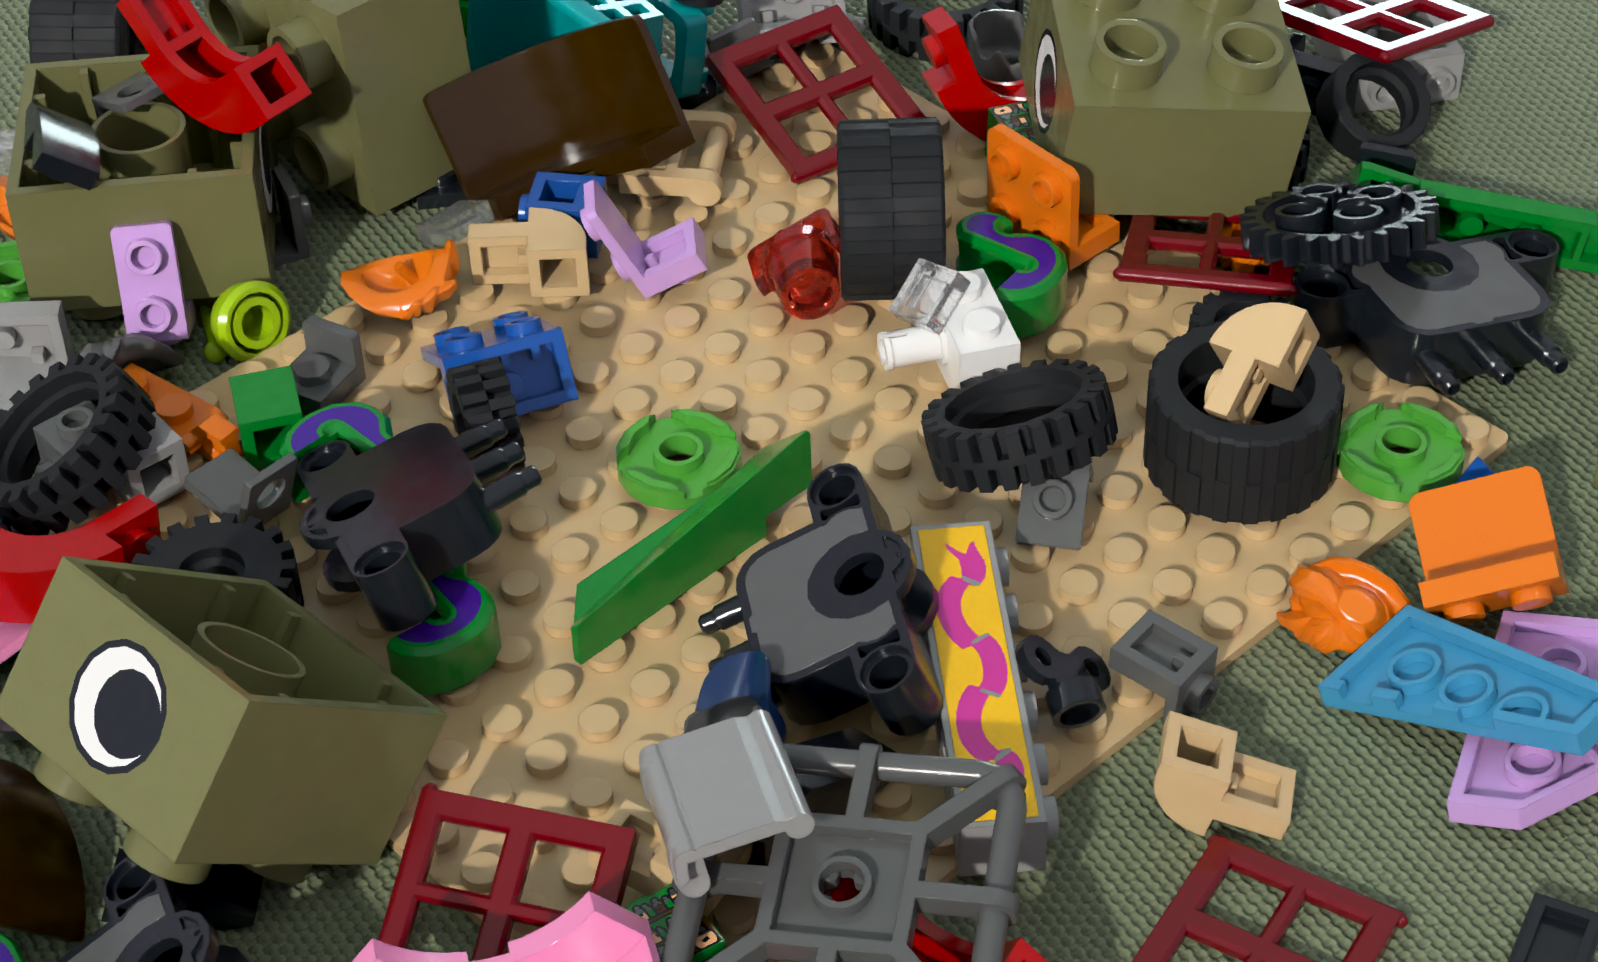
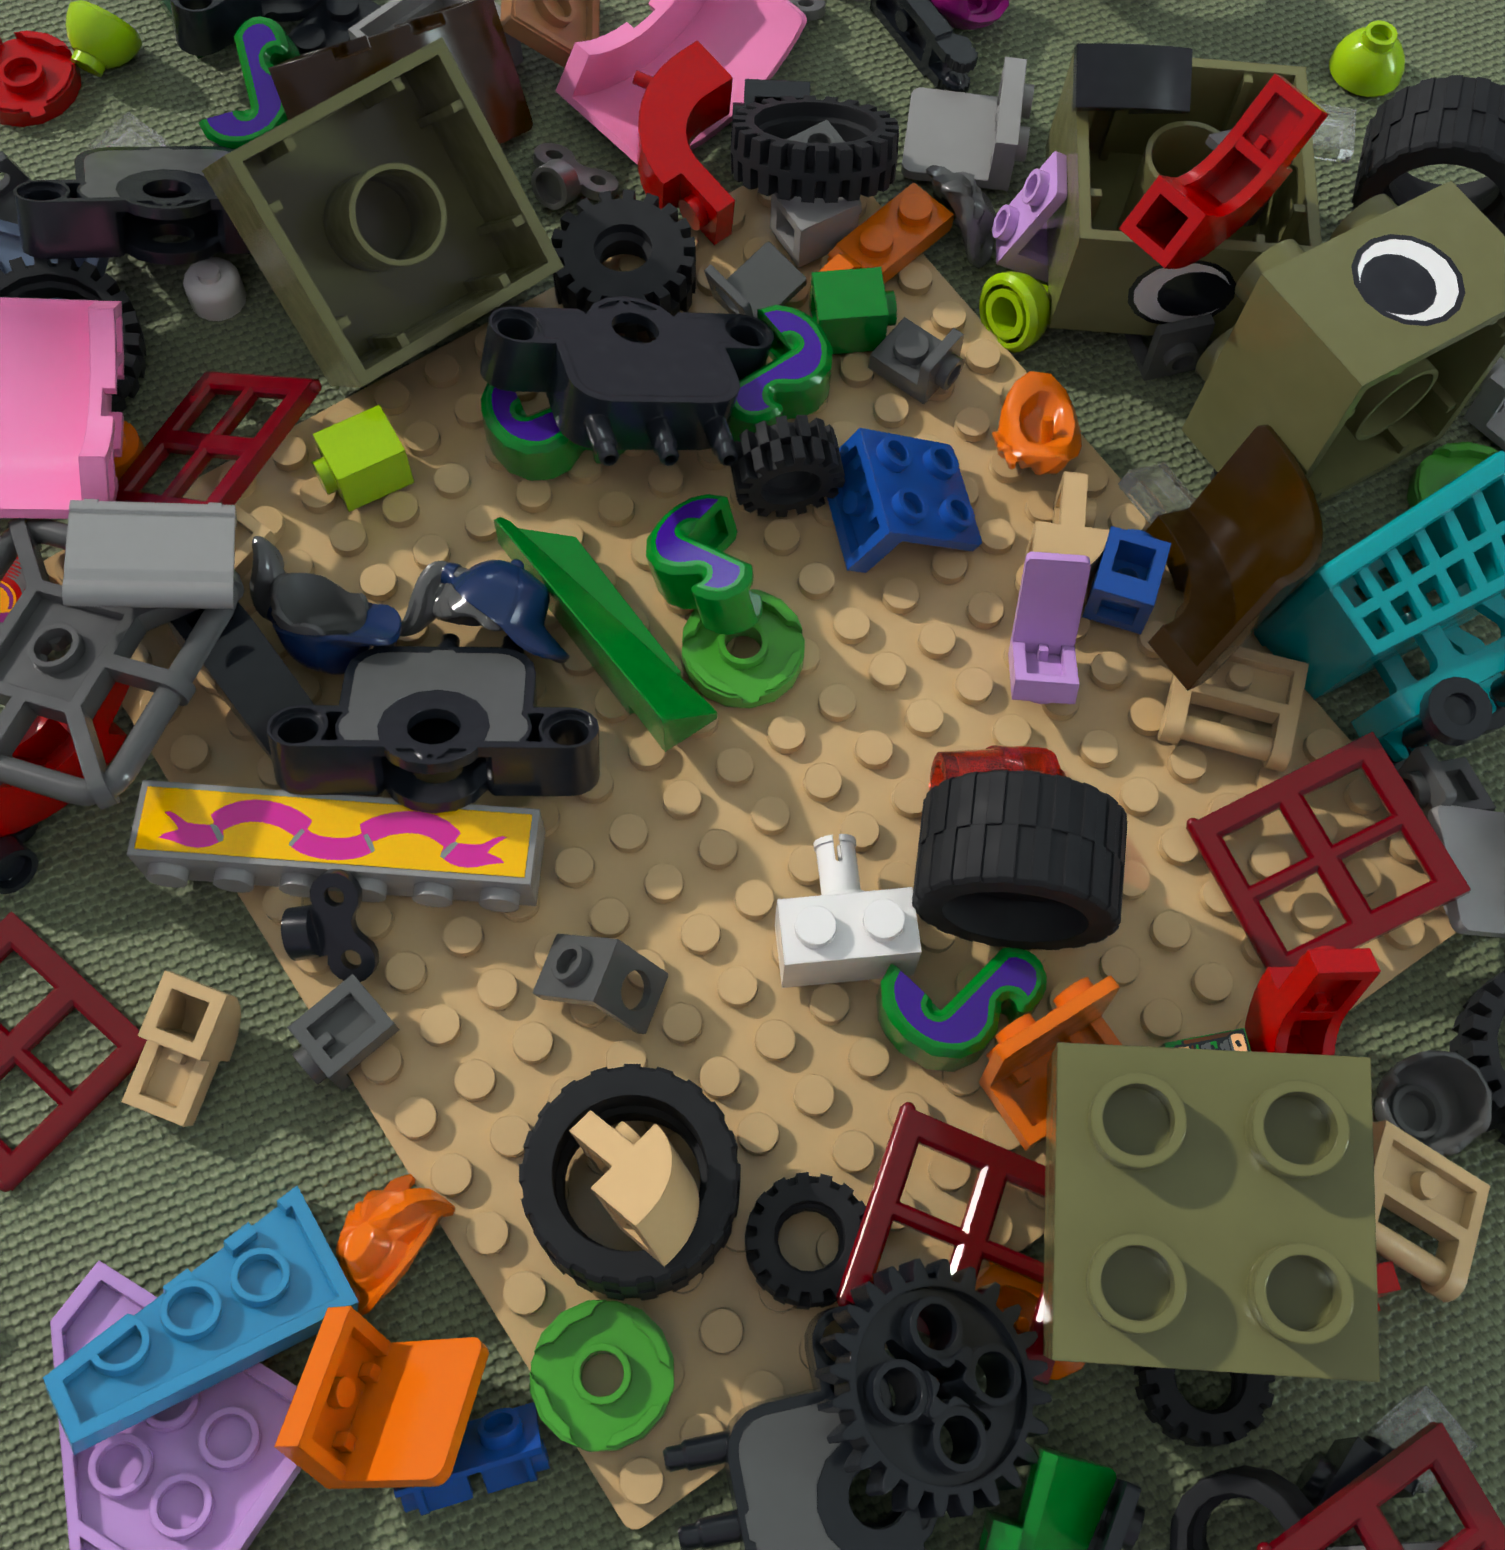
camera: 95 degrees right, 25 degrees up
(504, 759) = (361, 459): none -> lime brick
(618, 472) = (696, 573): none -> green animal
(677, 616) = (487, 595): none -> dark blue hair
(929, 296) = (864, 878): clear tile -> none
(1019, 425) = (628, 997): black tyre -> none

